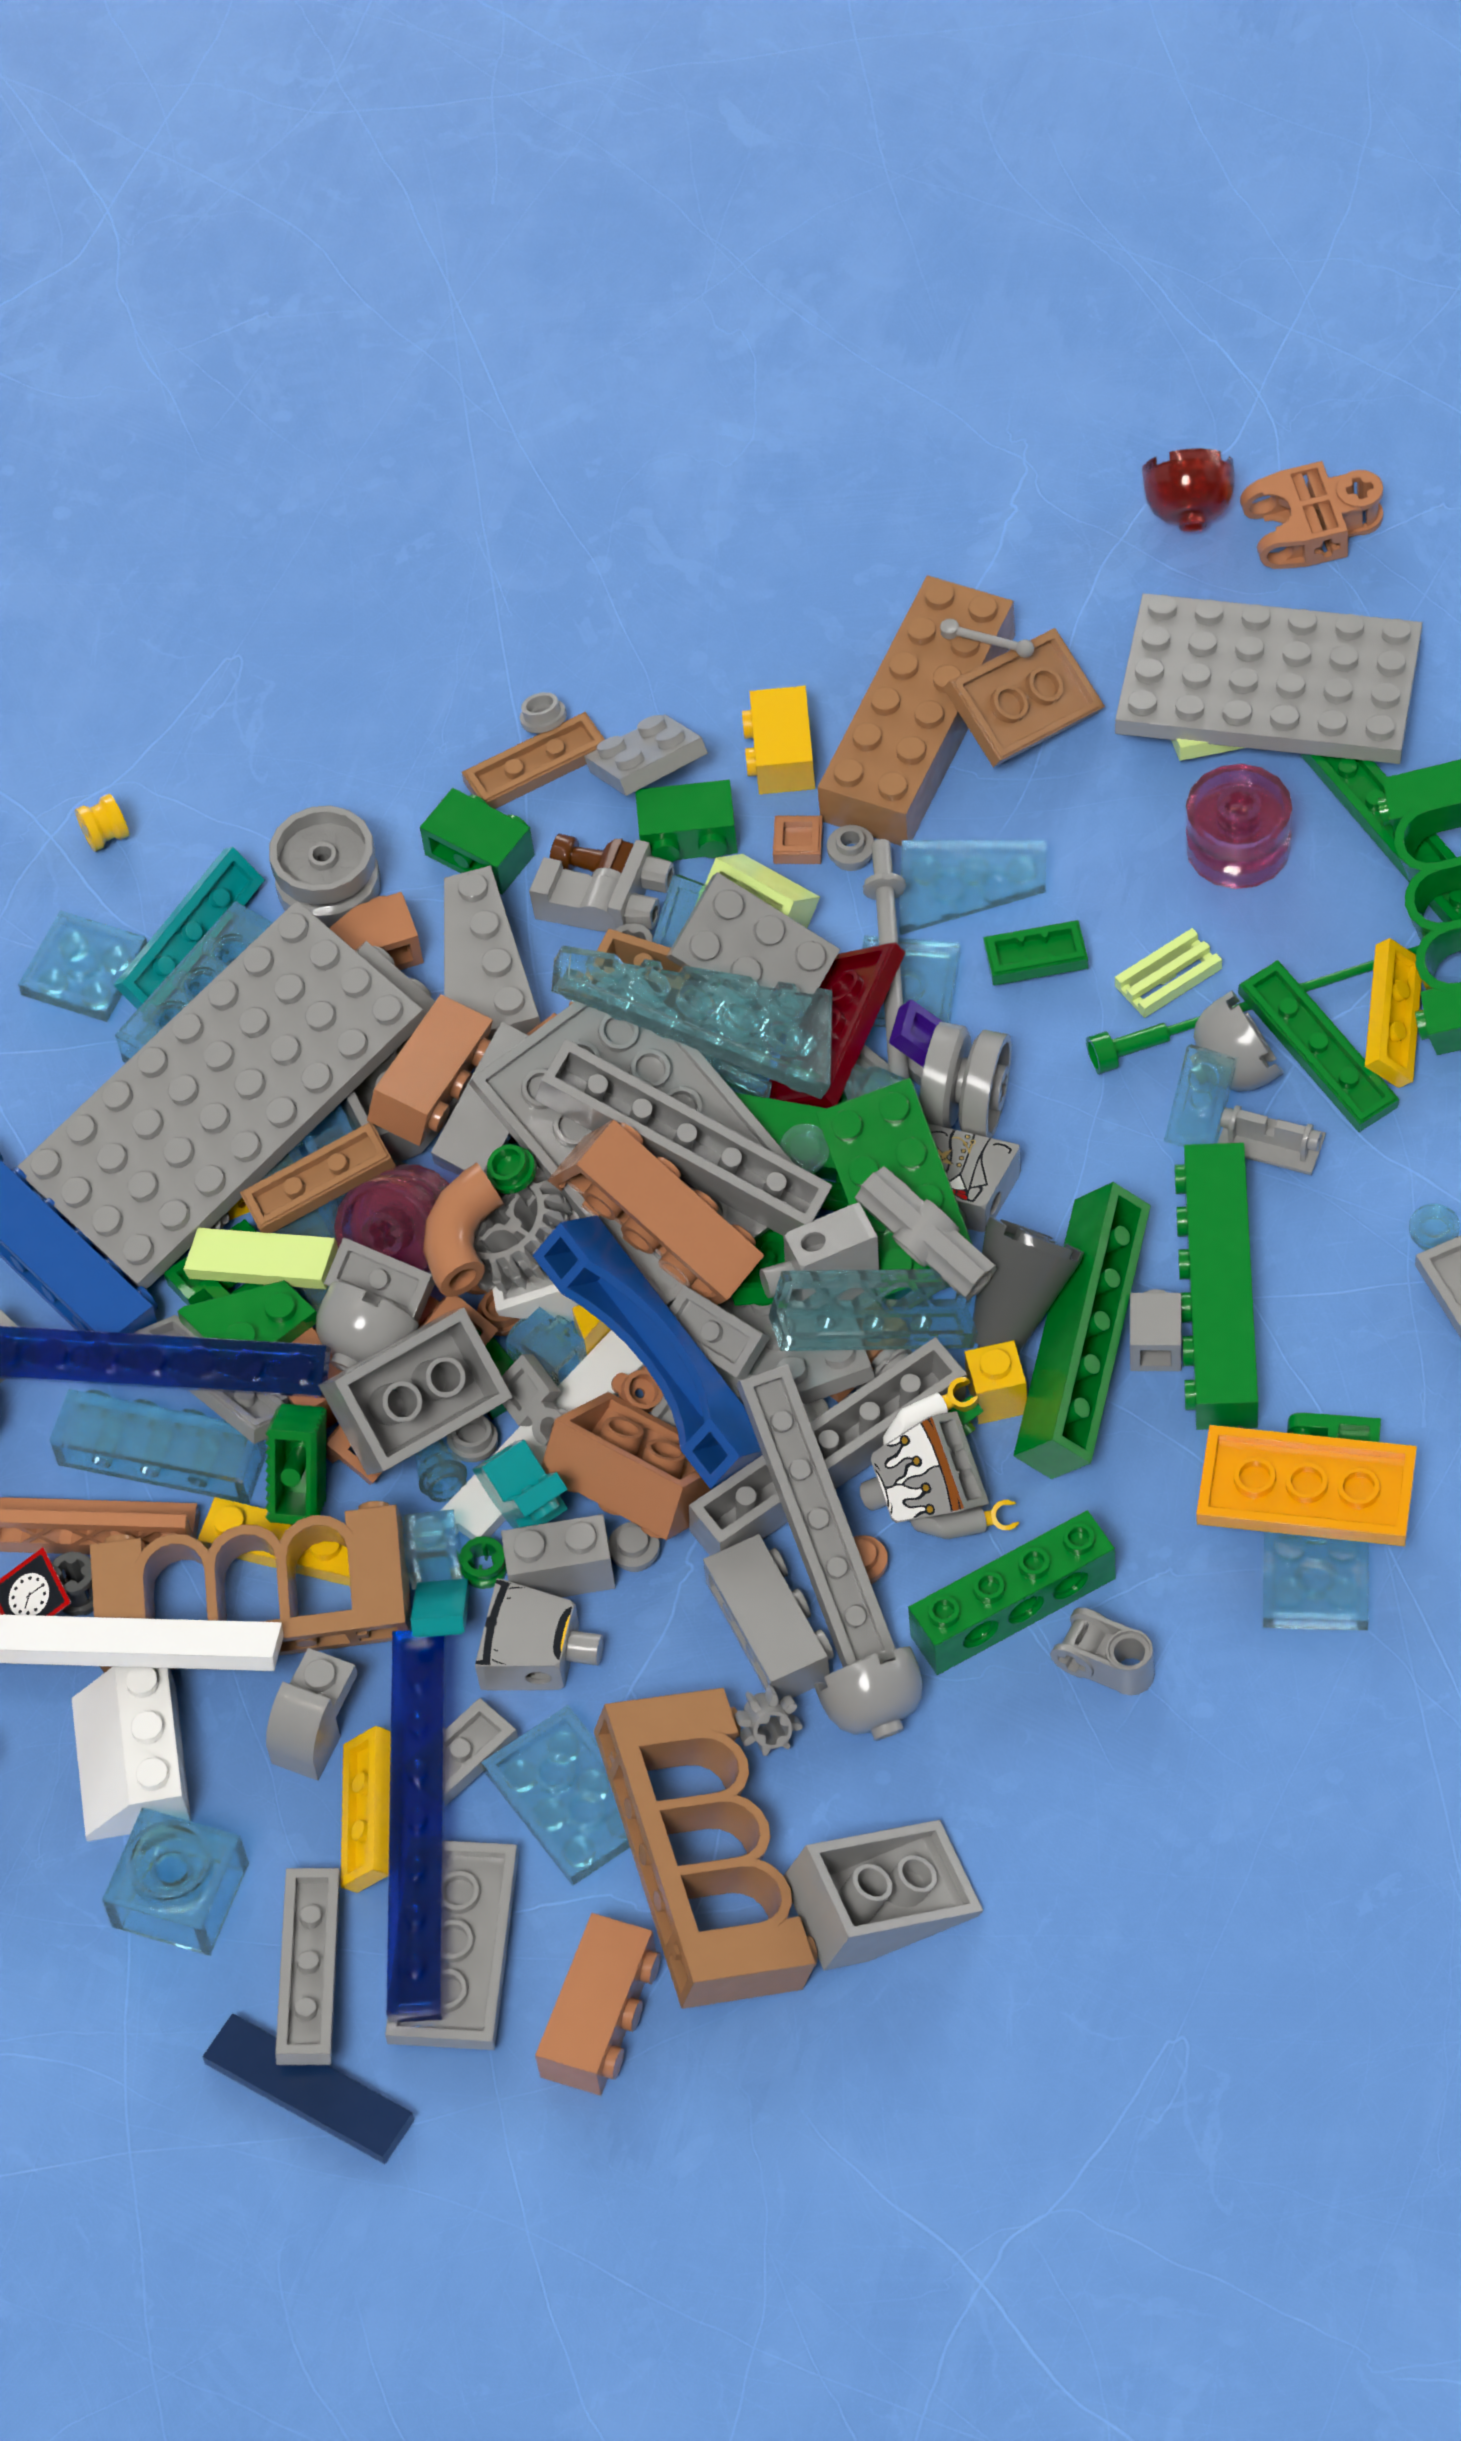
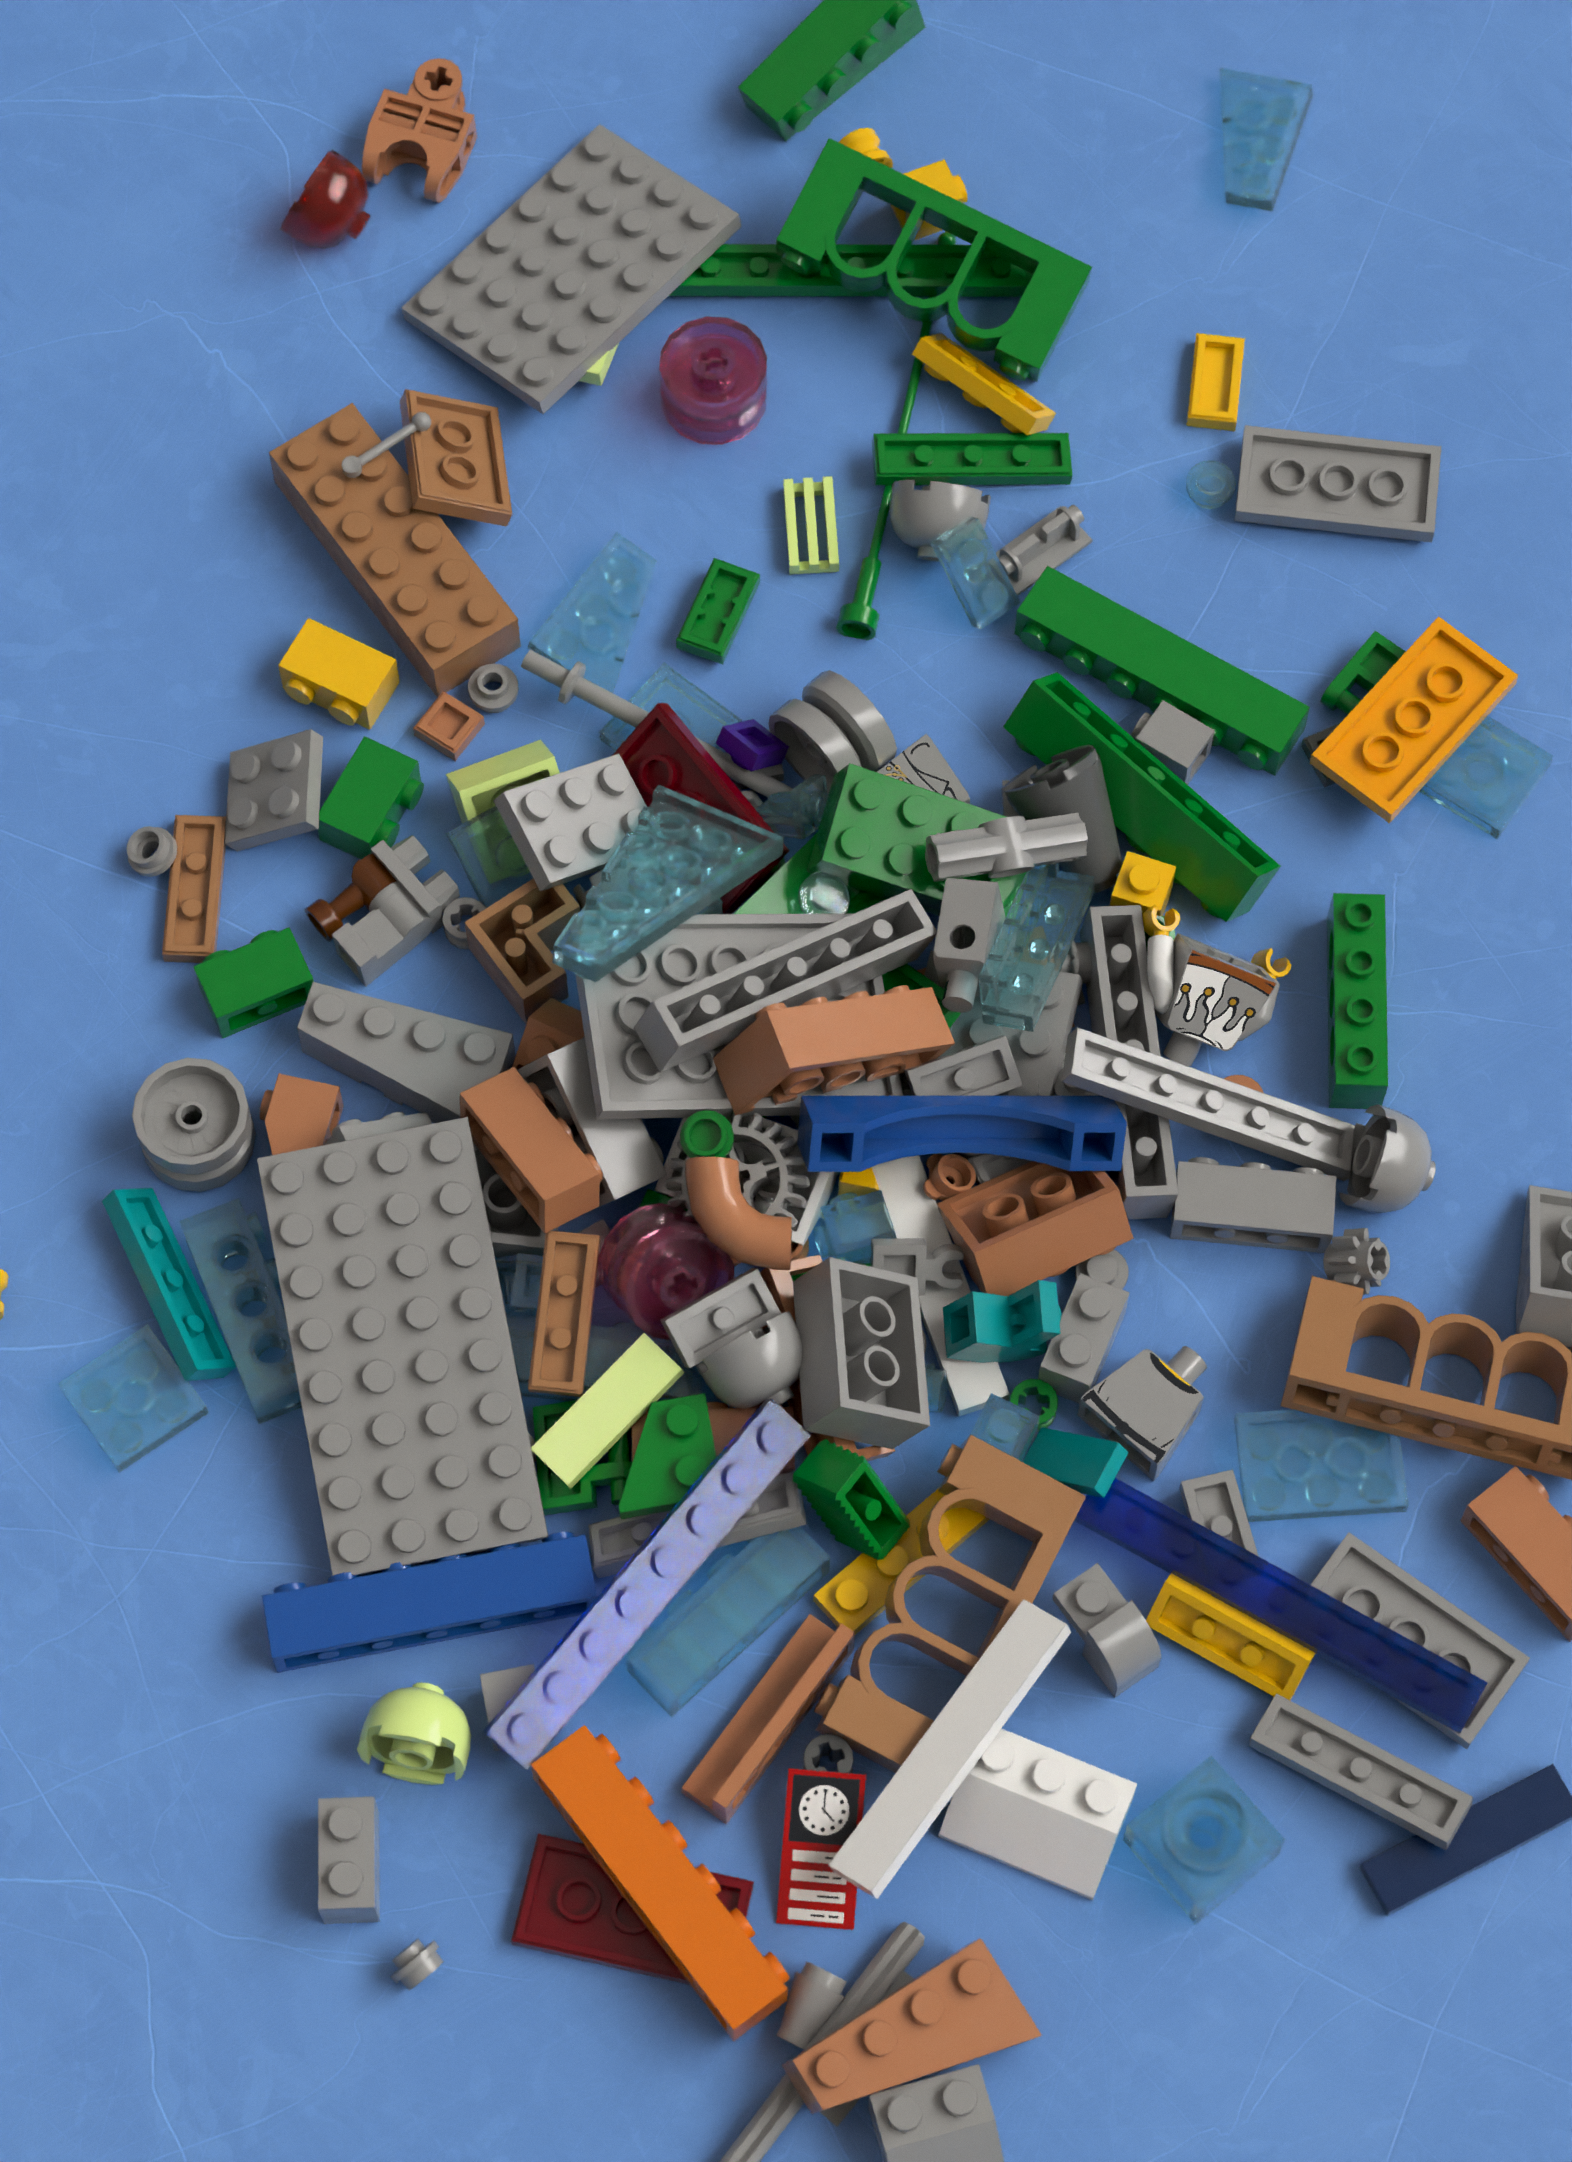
camera: 65 degrees left, 10 degrees up
(1098, 1646) = (1449, 970): light grey piece -> none

